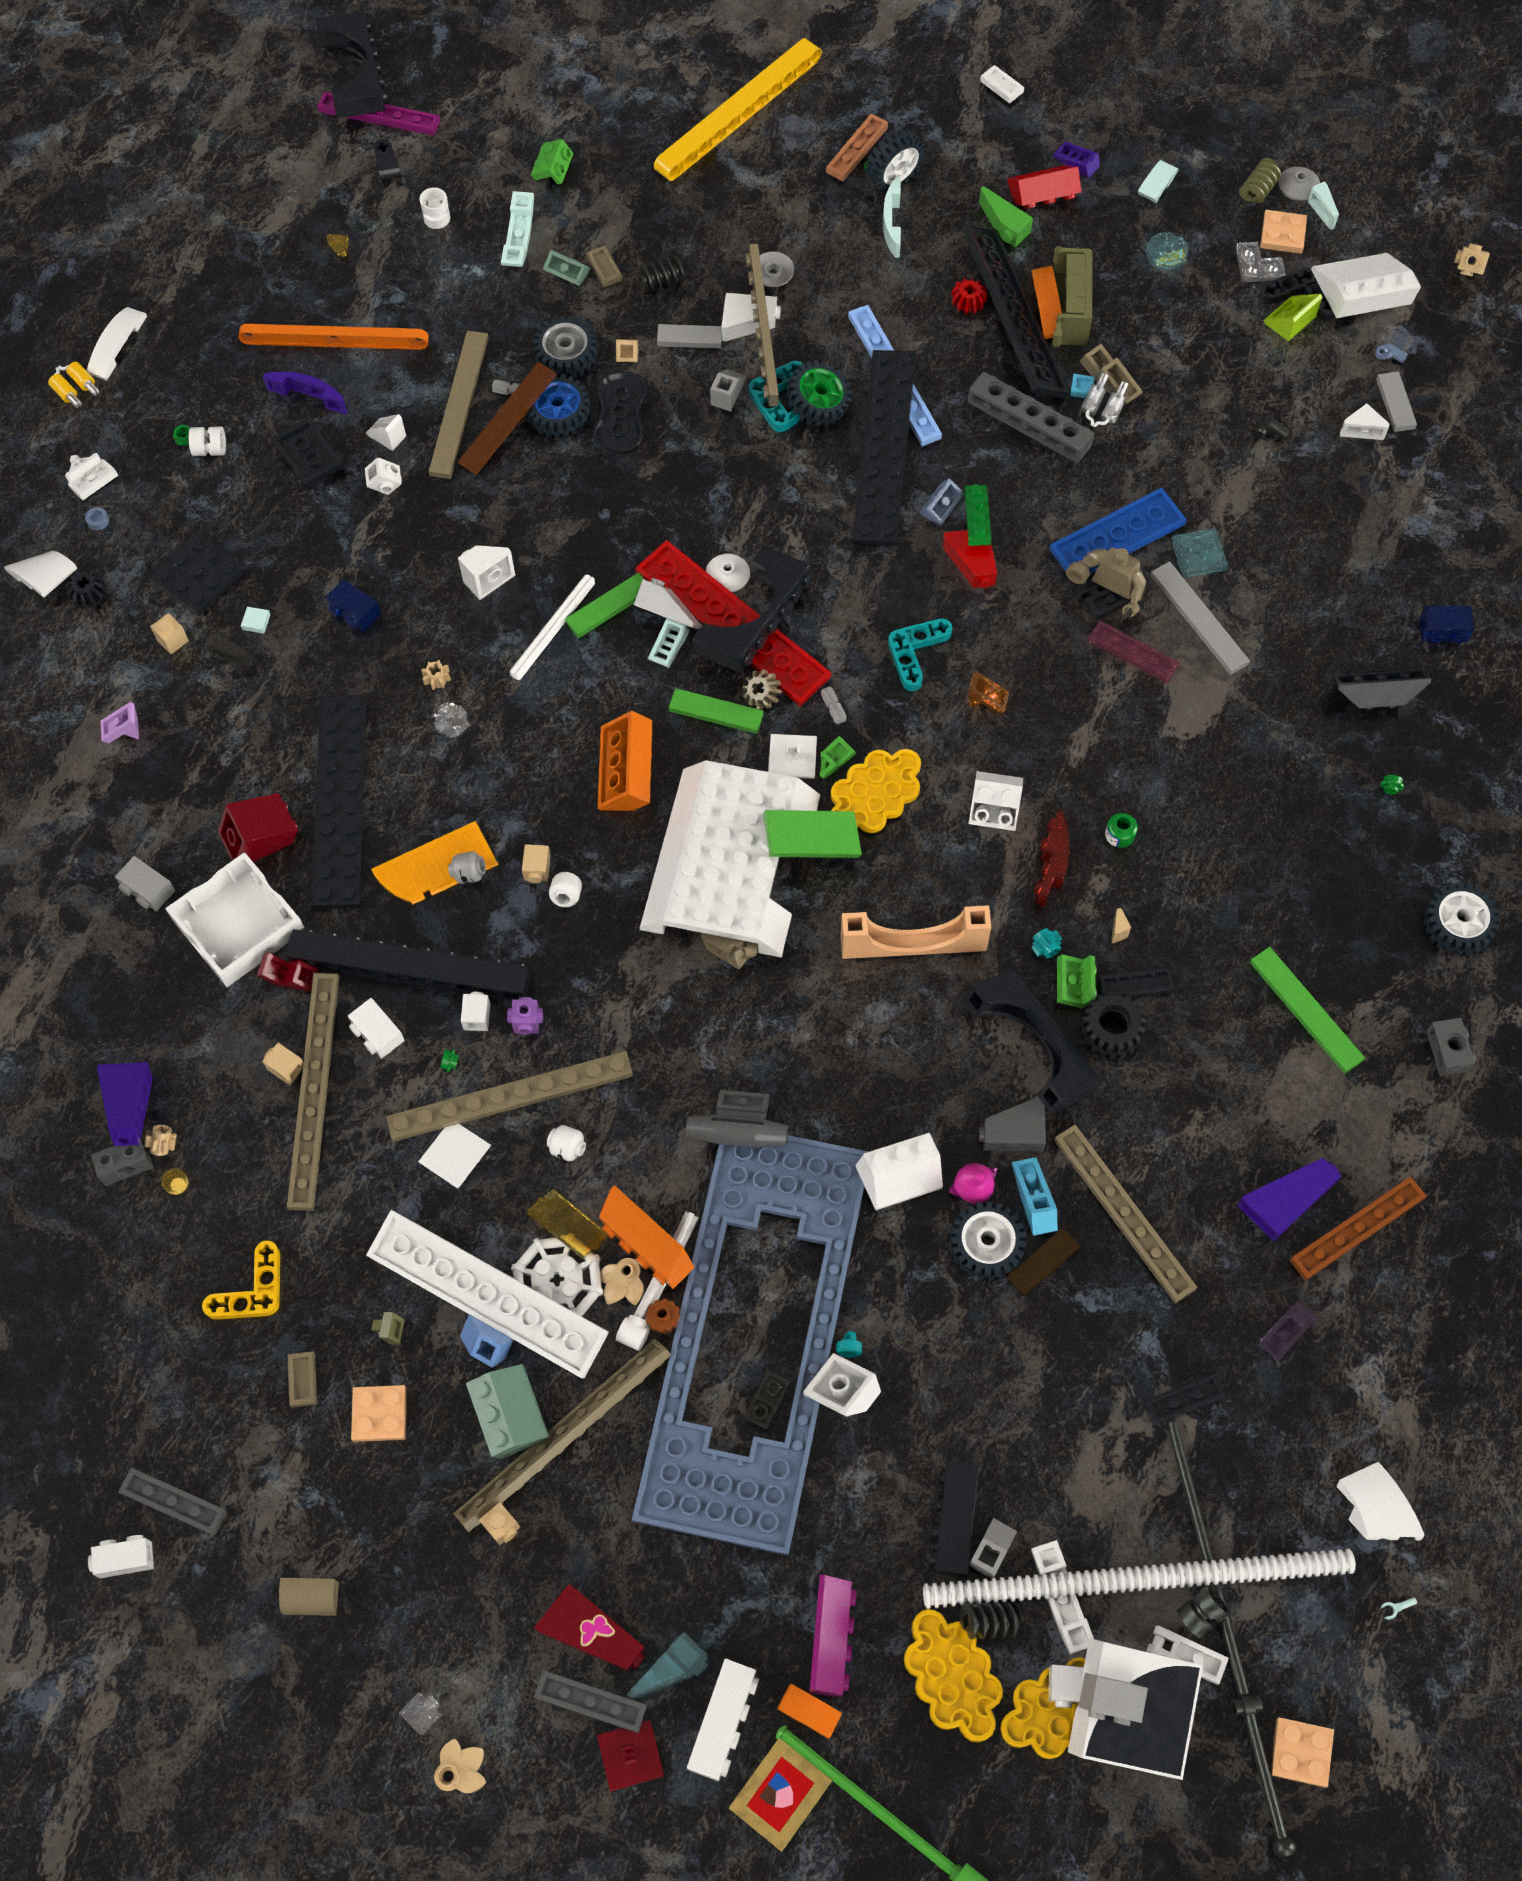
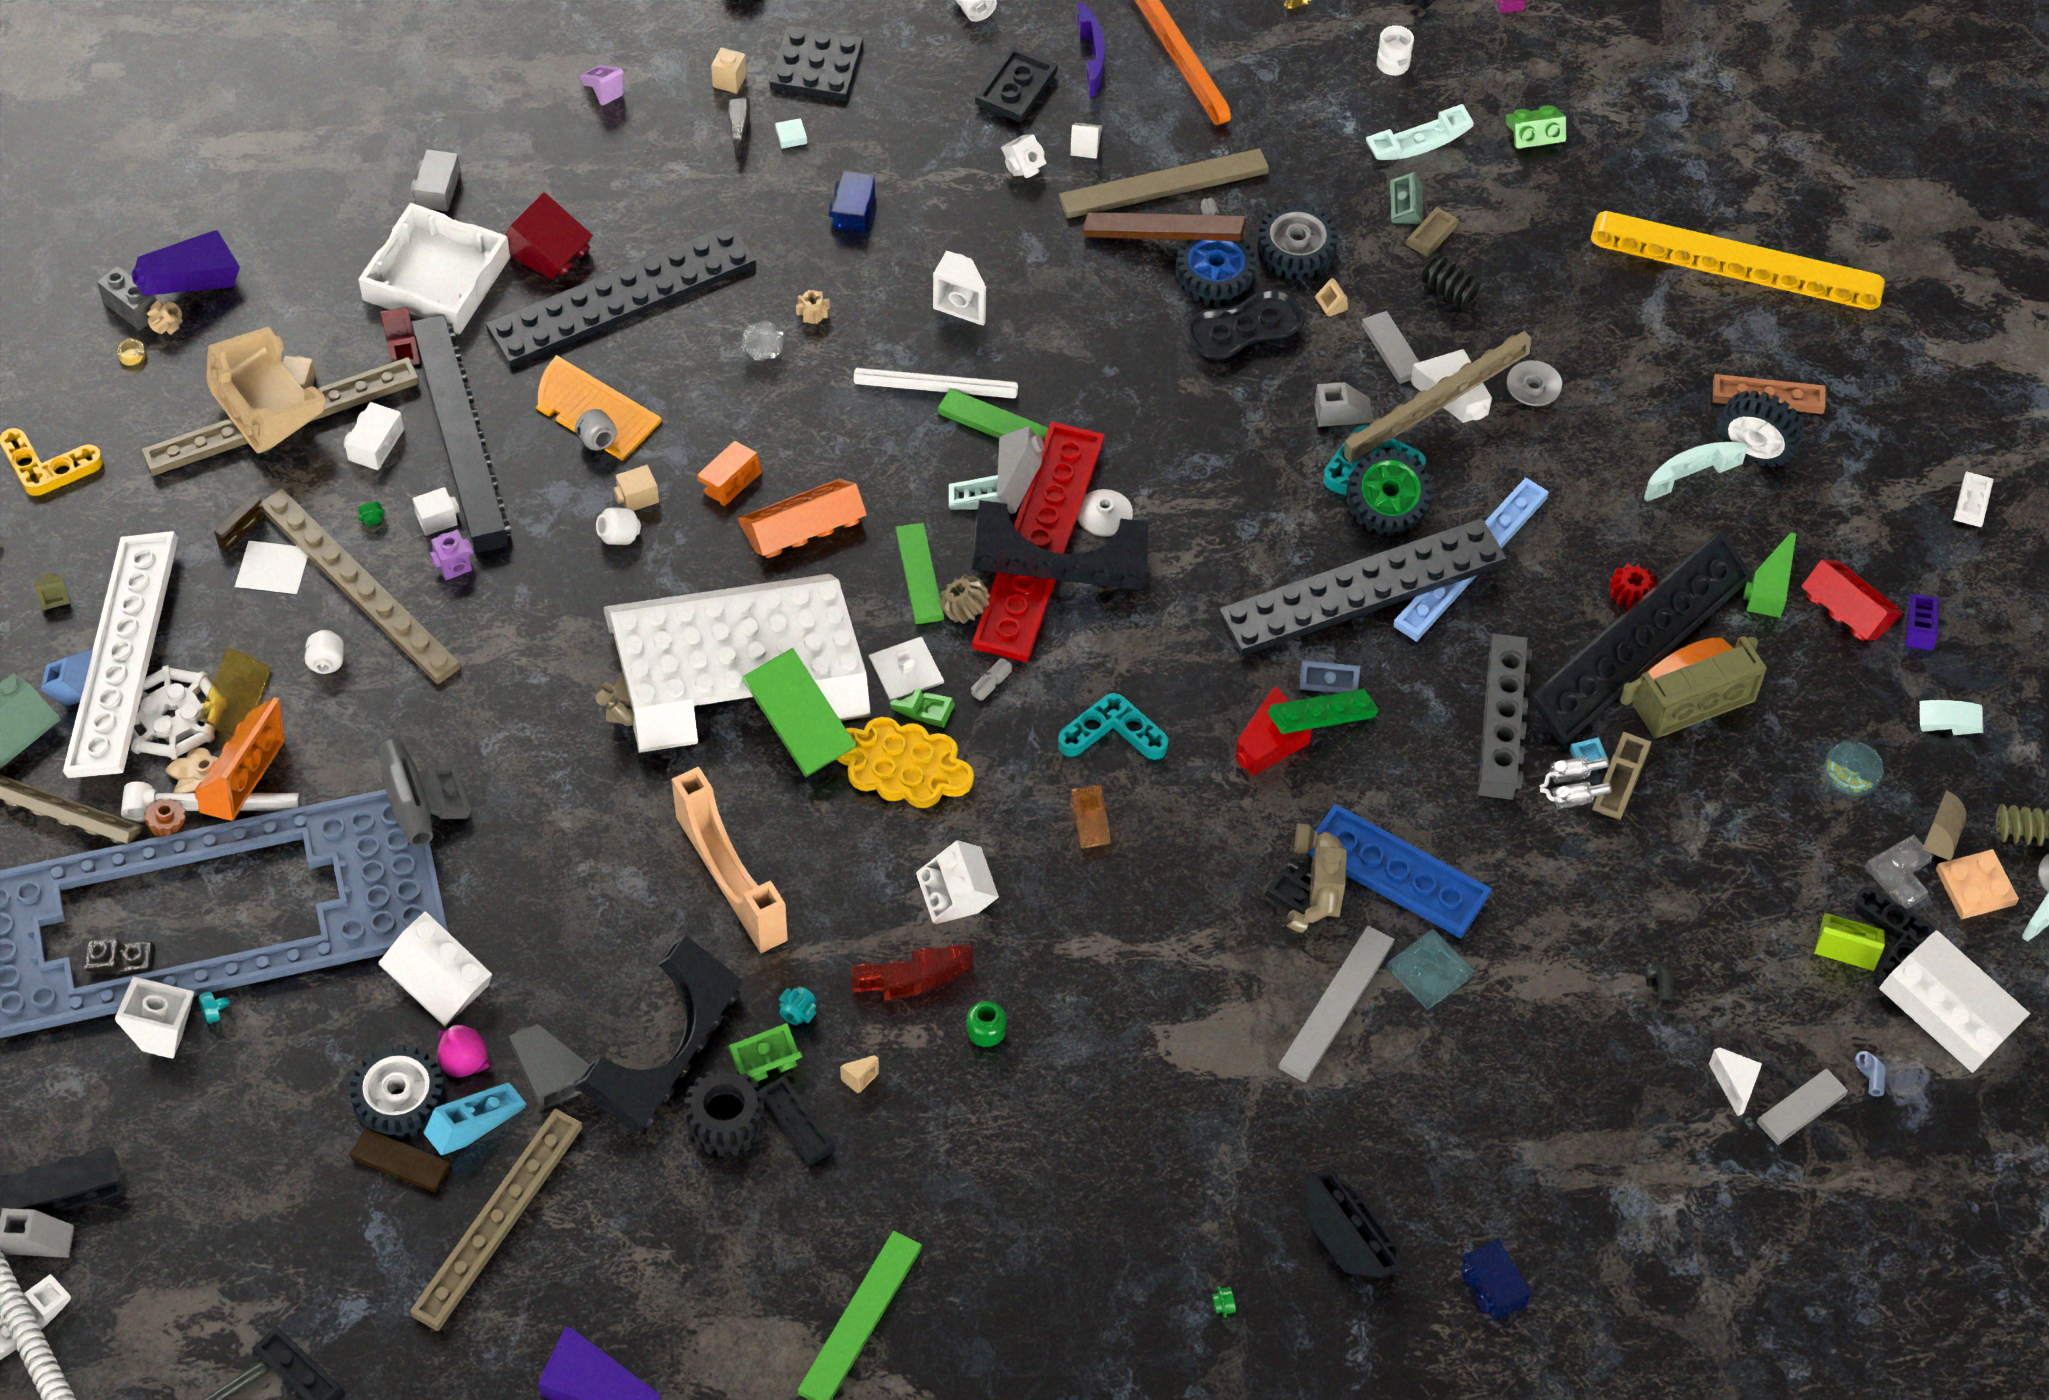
camera: 60 degrees right, 10 degrees down
(295, 1091) = (259, 389): none -> tan windscreen
(403, 1160) = (239, 523): none -> dark brown tile
(557, 794) = (730, 472): none -> orange hinge
(1133, 651) = (1246, 952): clear pink tile -> none
(1242, 224) = (1946, 827): none -> dark tan brick

